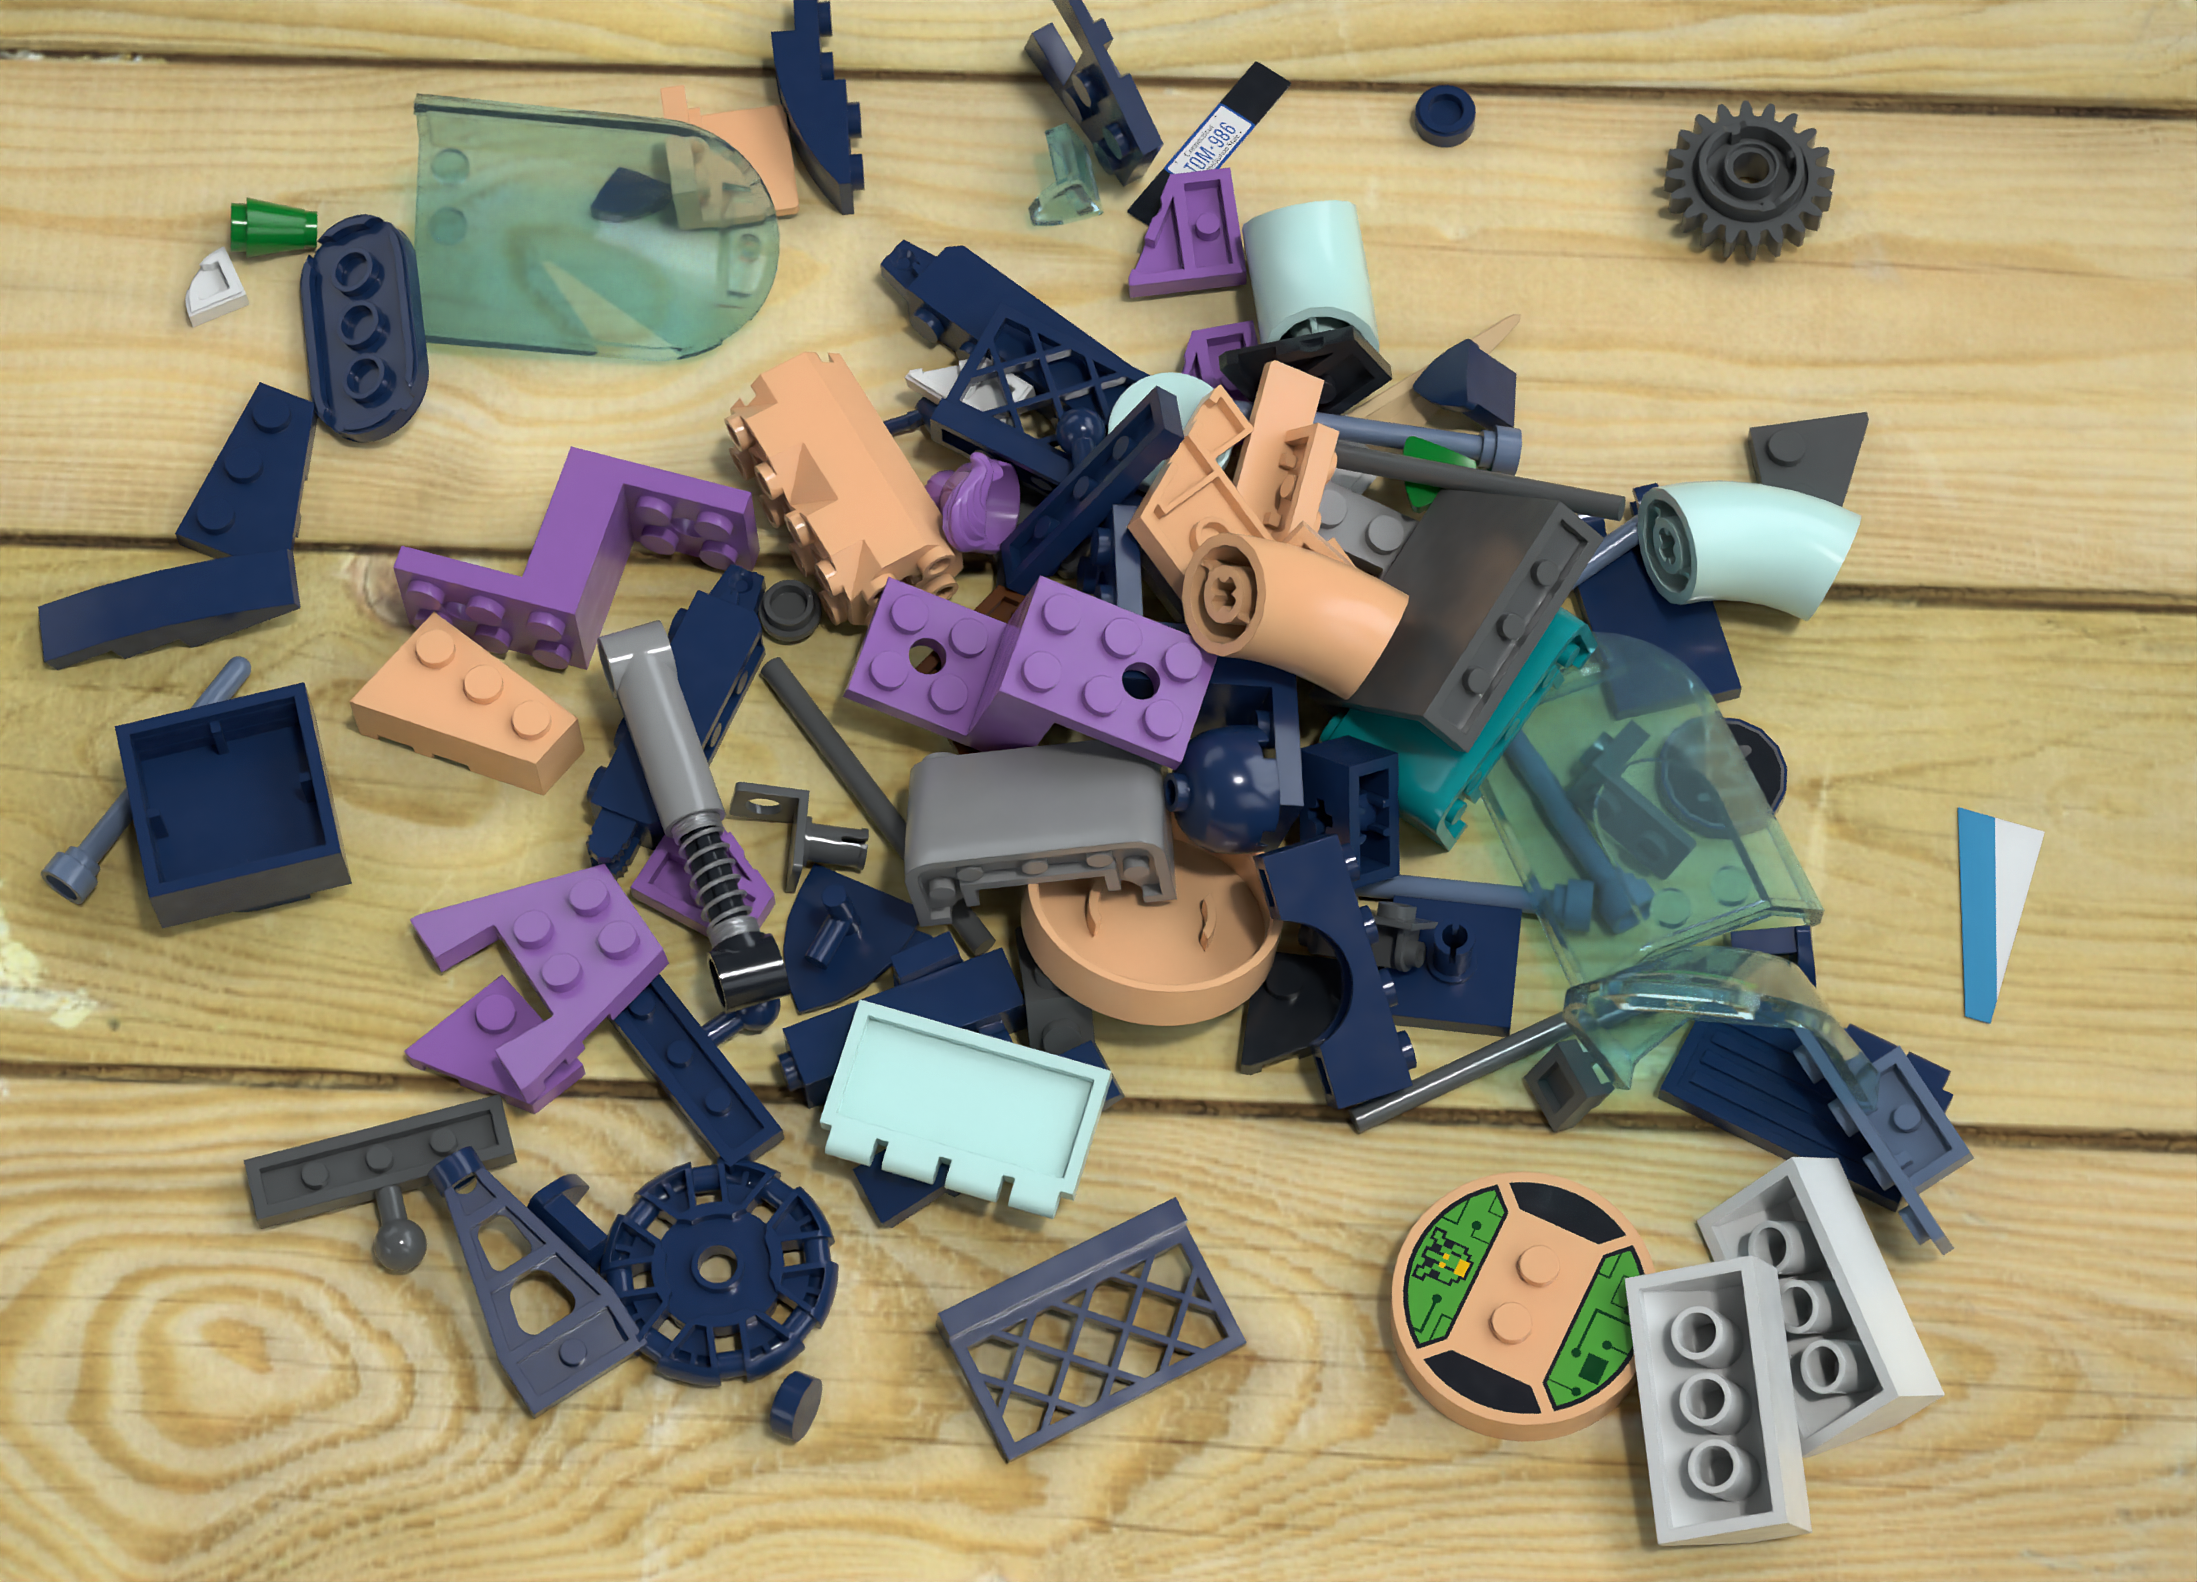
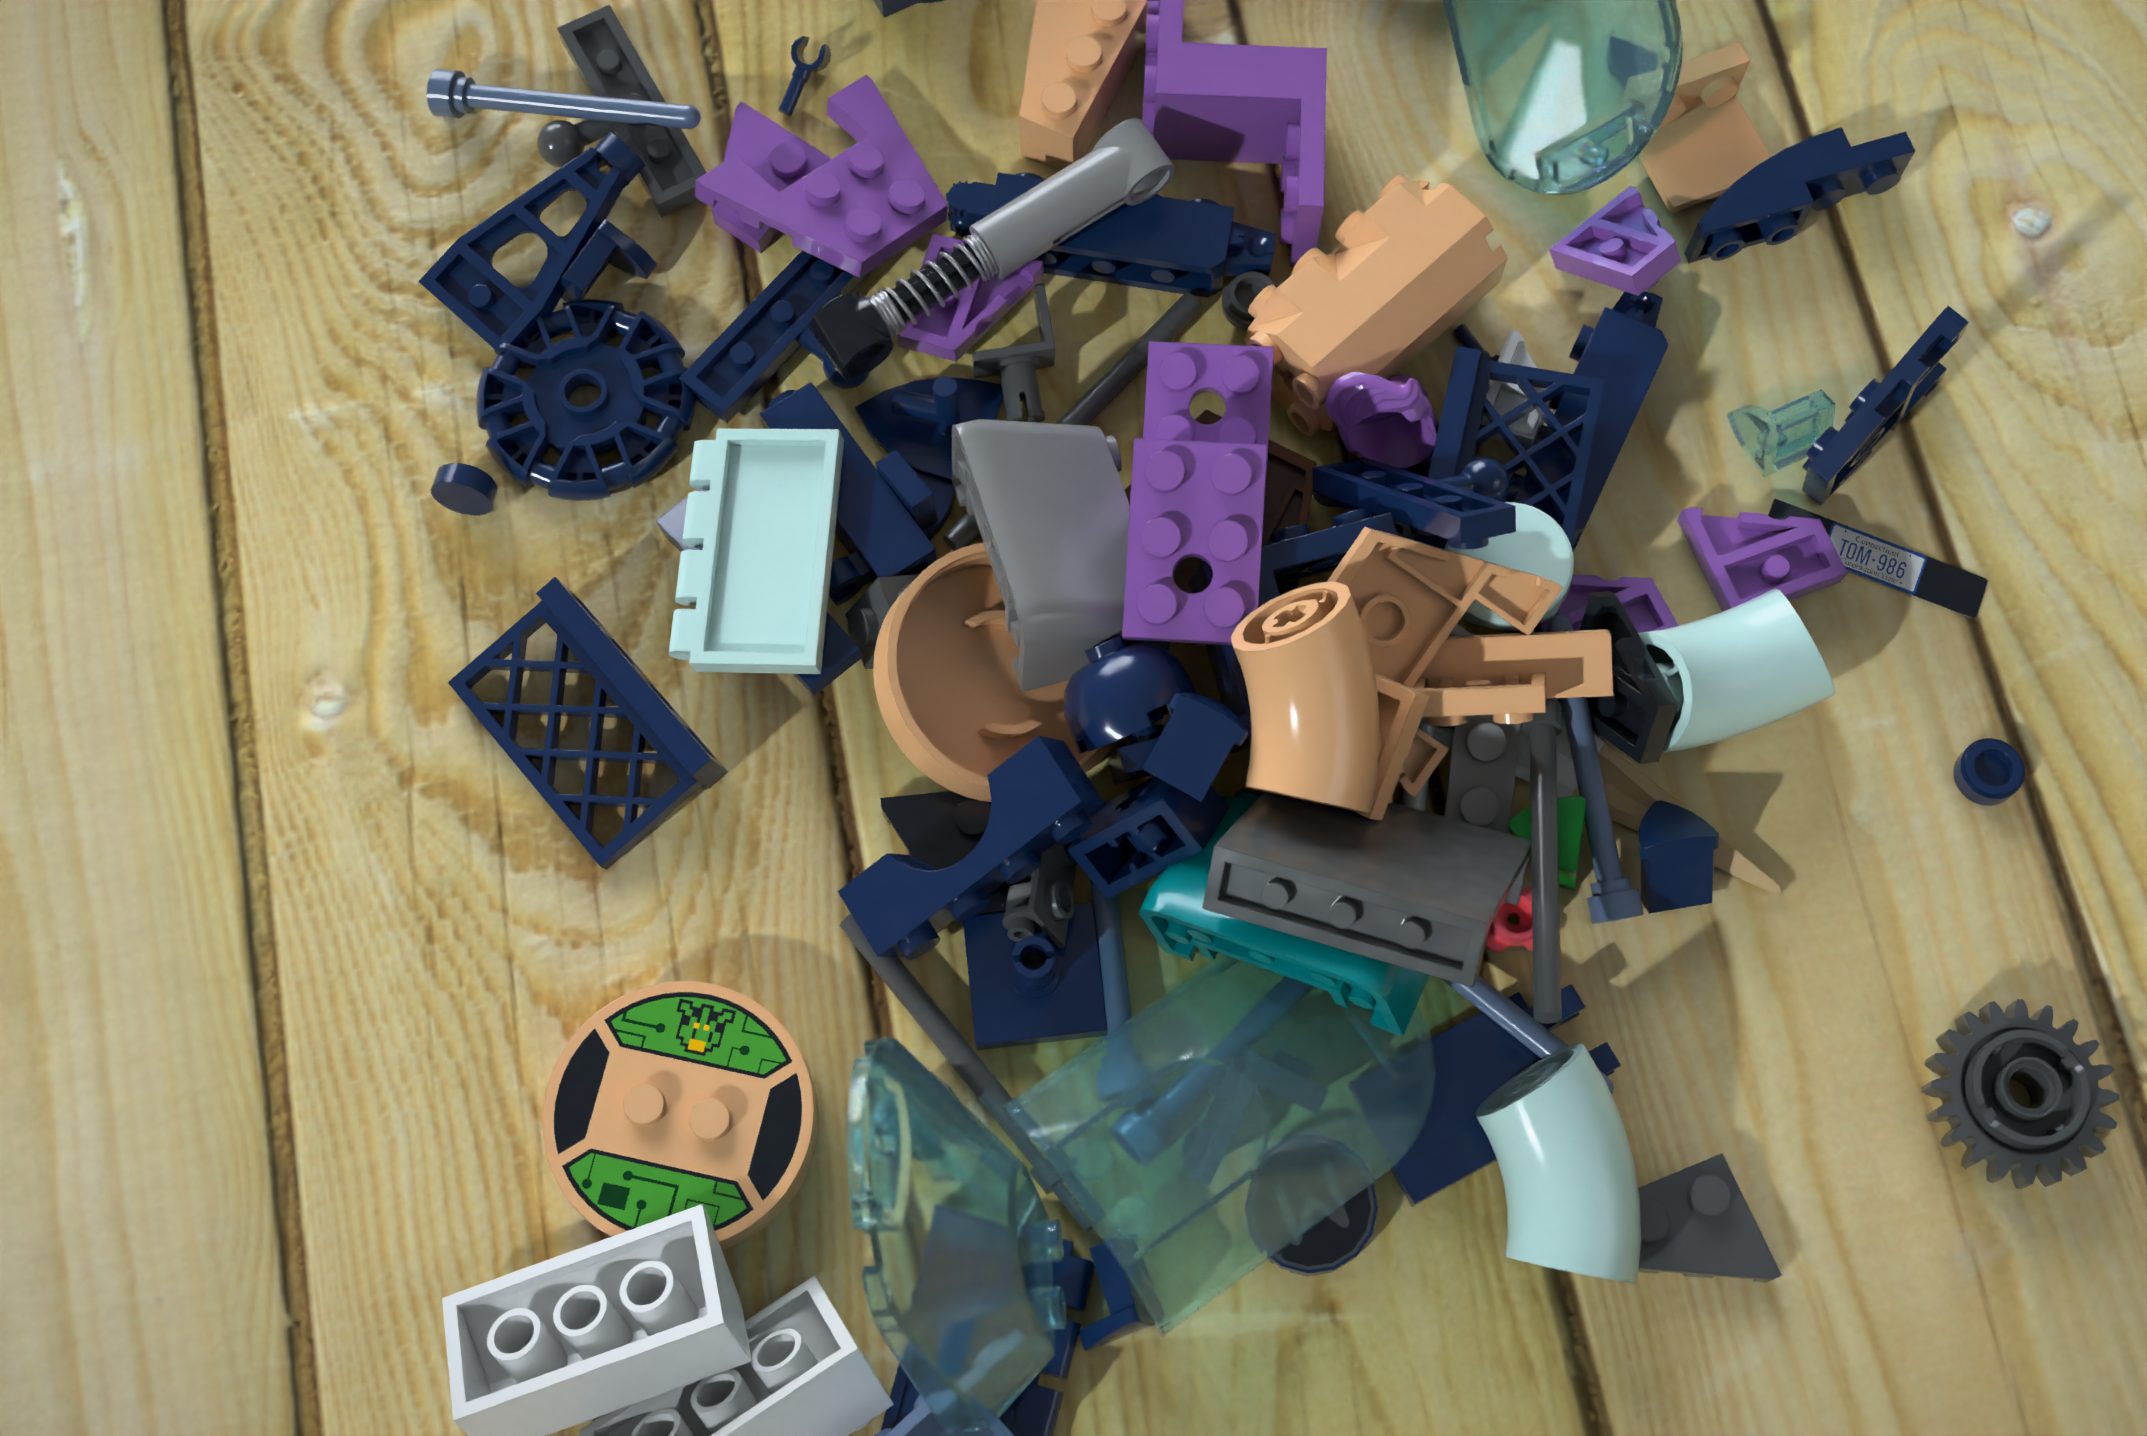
camera: 75 degrees right, 5 degrees up
(305, 1340) = (454, 94): none -> sand blue piece
(382, 983) = (802, 73): none -> dark blue hand
(839, 261) = (1619, 246): none -> medium lavender wing
(1306, 723) = (1195, 743): none -> dark blue tile

